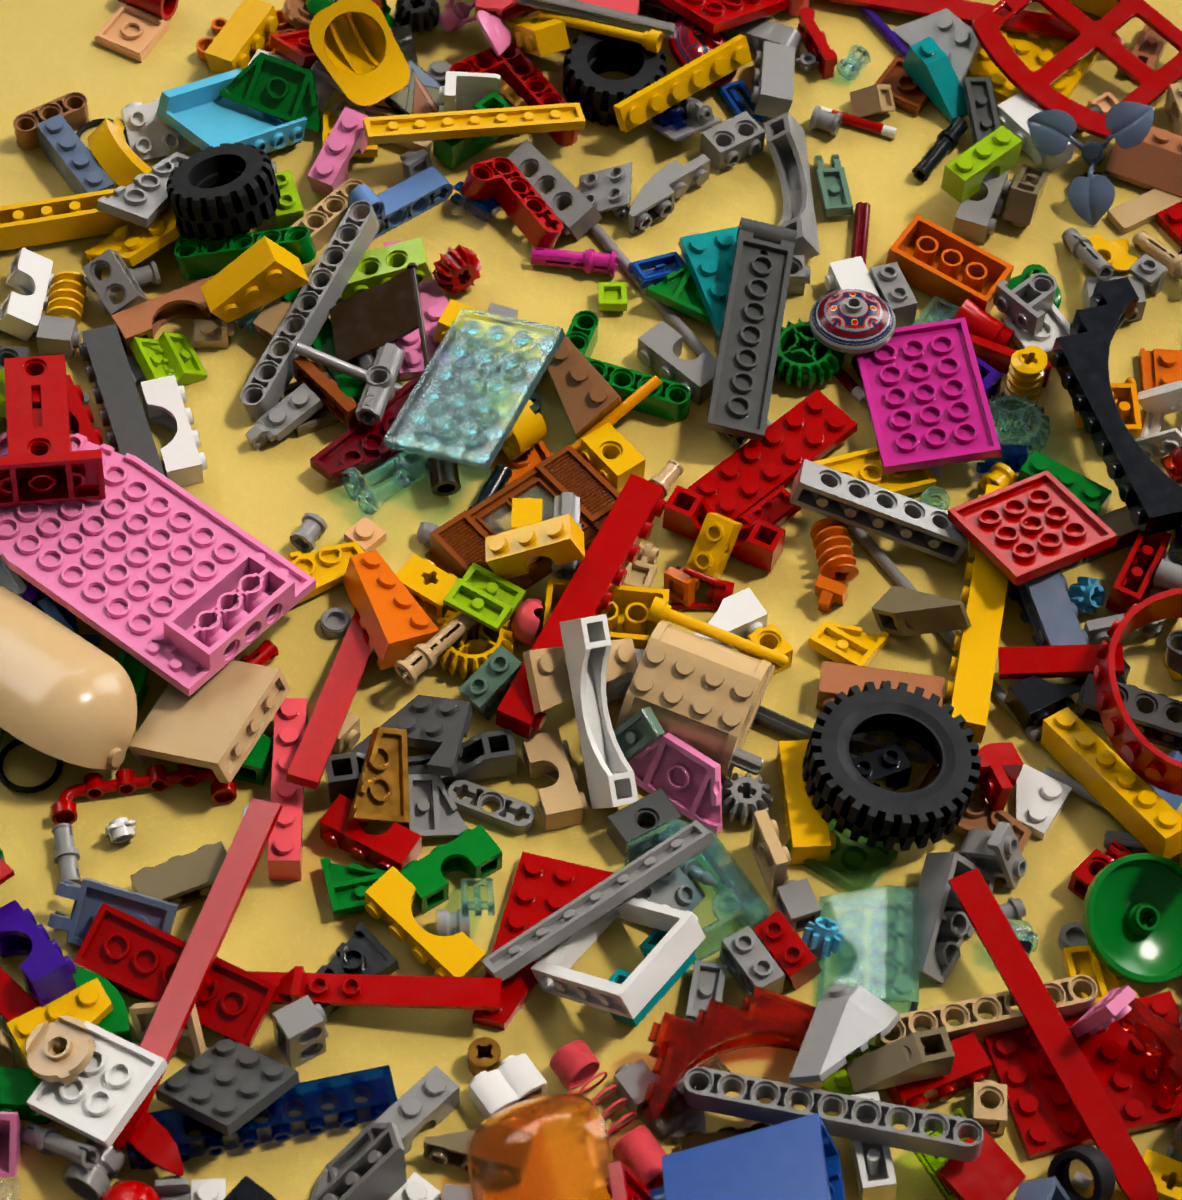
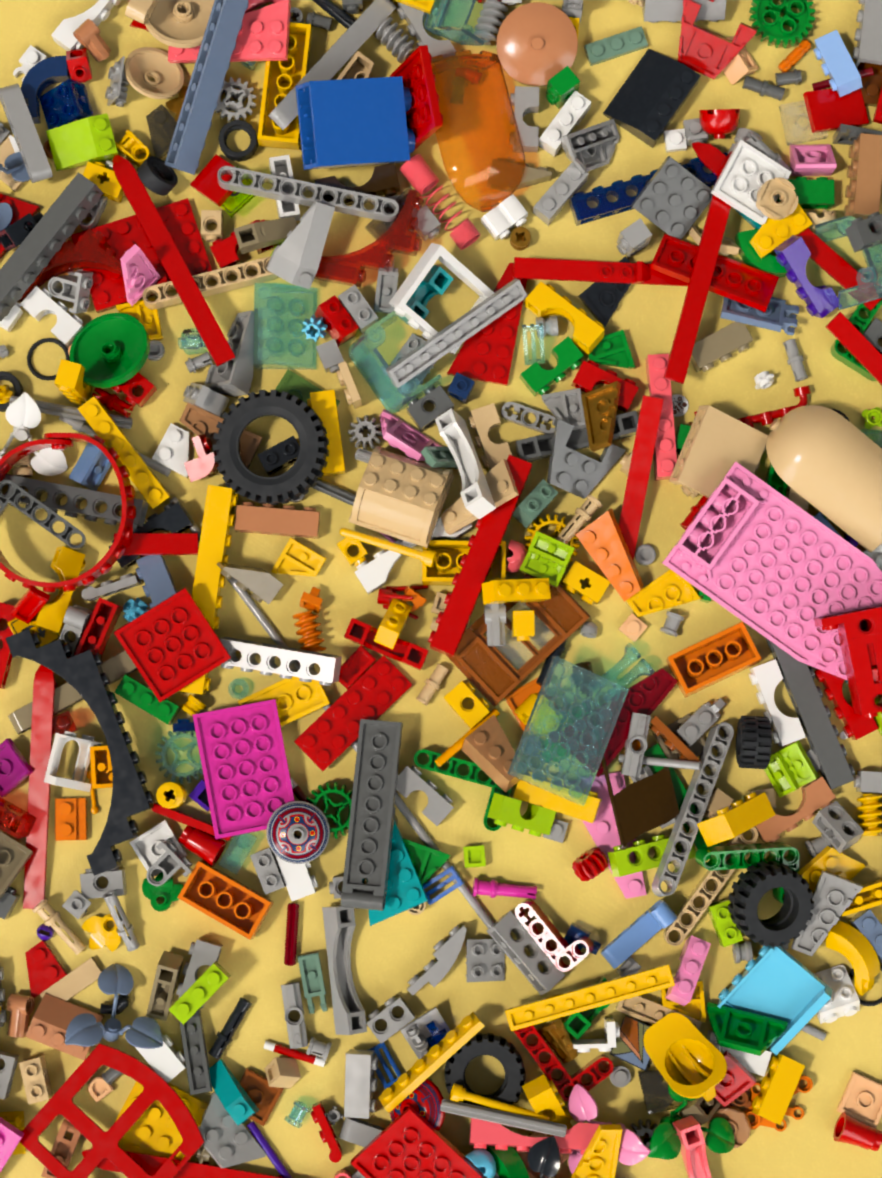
camera: 175 degrees right, 30 degrees up
(215, 377) = (753, 742): none -> black tyre
(258, 479) = (713, 659): none -> orange brick
(565, 313) = (507, 810): none -> lime arch
(595, 845) = (461, 388): none -> dark blue brick
(857, 152) = (293, 1001): none -> light grey piece

